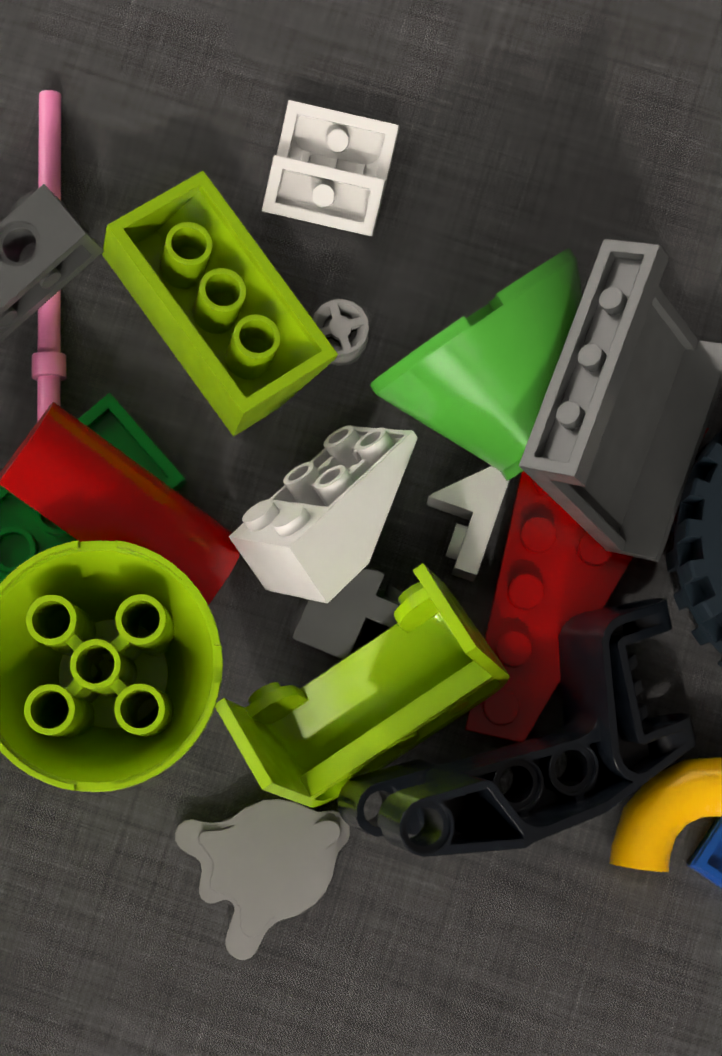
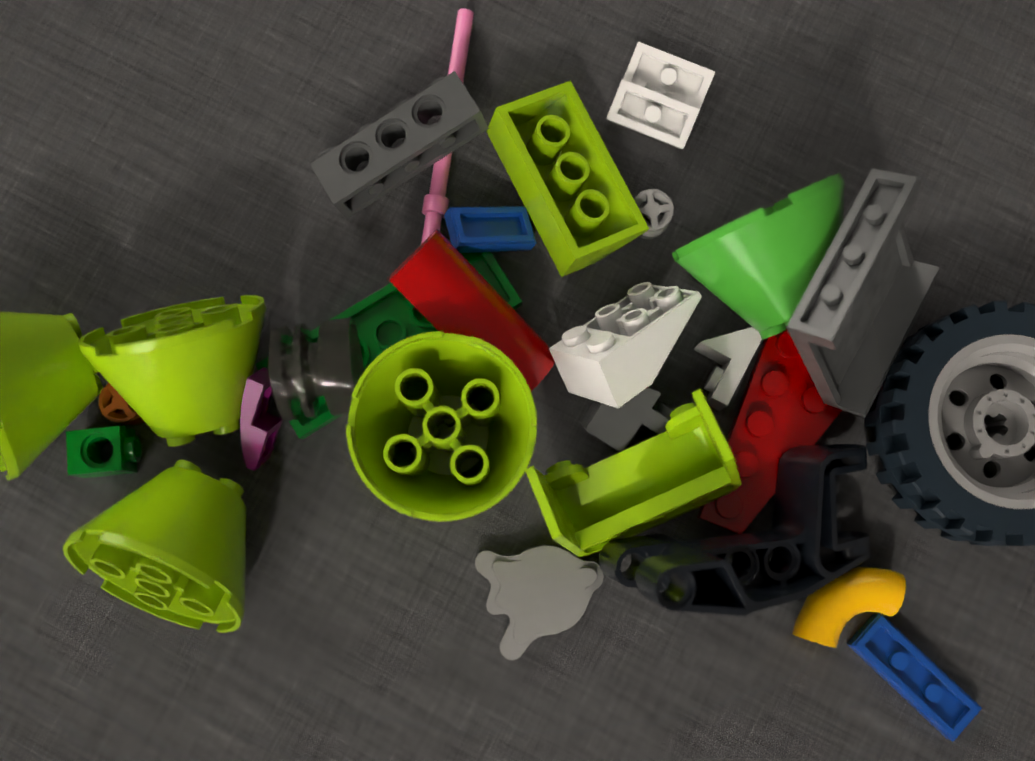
camera: 10 degrees right, 0 degrees up
(126, 387) = (490, 229): none -> blue tile

